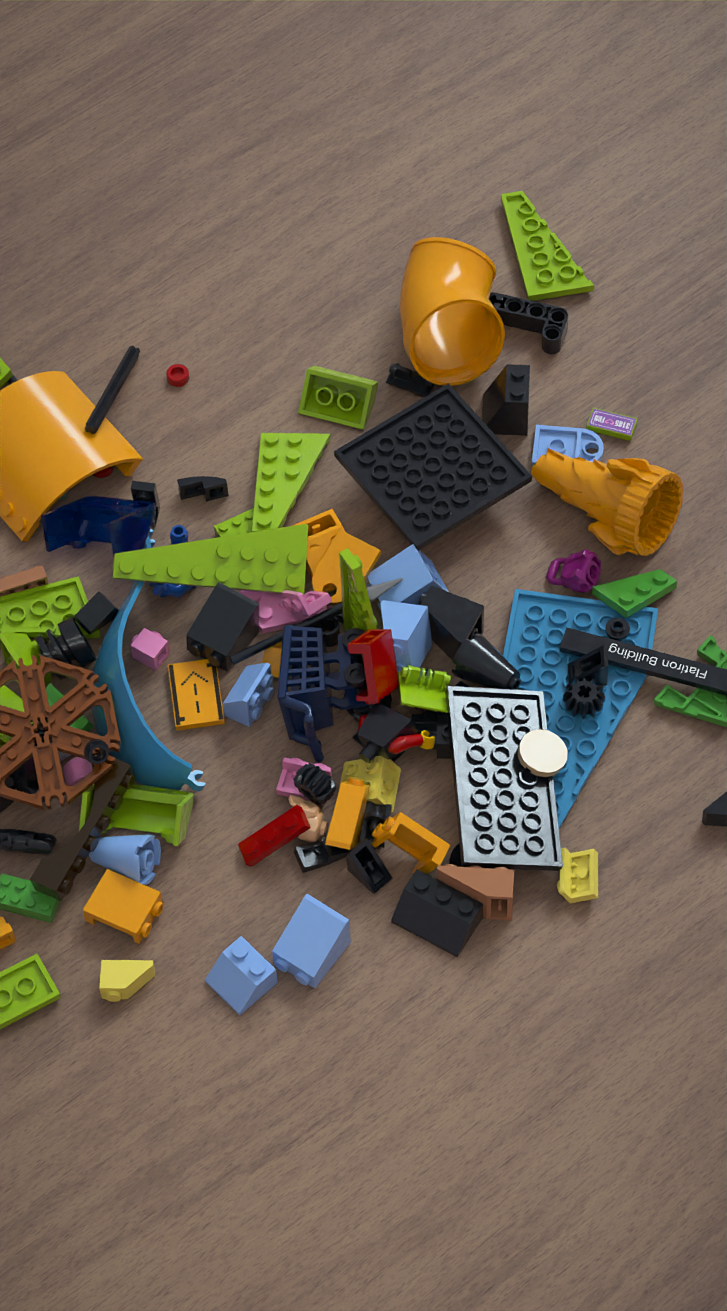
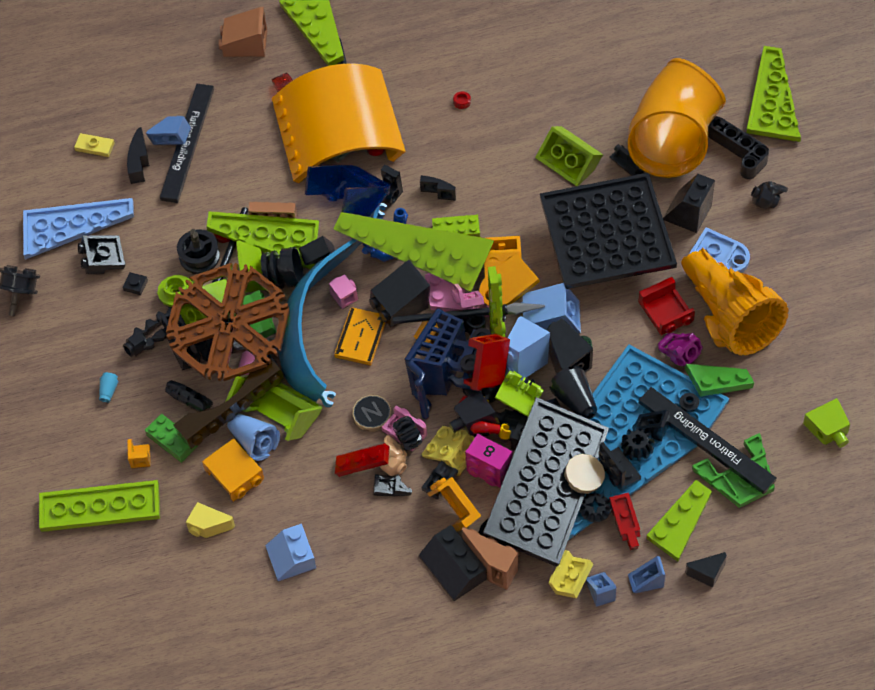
camera: 25 degrees right, 0 degrees up
(99, 757) = (257, 355): black plate -> none
(112, 390) = (406, 94): black axle -> none
(249, 694) = (392, 352): light blue slope -> none
(254, 778) = (371, 412): none -> black tile
(282, 473) = (501, 195): lime wing -> none
(312, 942) = (350, 548): light blue slope -> none
(348, 814) = (420, 465): light orange slope -> none
(367, 866) = (419, 508): black slope -> none
(423, 780) = (487, 460): none -> dark pink brick
(535, 532) = (665, 306): none -> red panel
(565, 795) = (601, 513): none -> black gear
(575, 732) = (618, 467): none -> black bracket
(587, 363) = (767, 194): none -> black head
(610, 788) = (625, 519): none -> red hinge
(612, 424) = (764, 247): tile -> none
(620, 876) = (601, 588): none -> medium blue slope
(666, 841) = (648, 576): none -> medium blue slope
(669, 768) = (676, 526): none -> lime wing

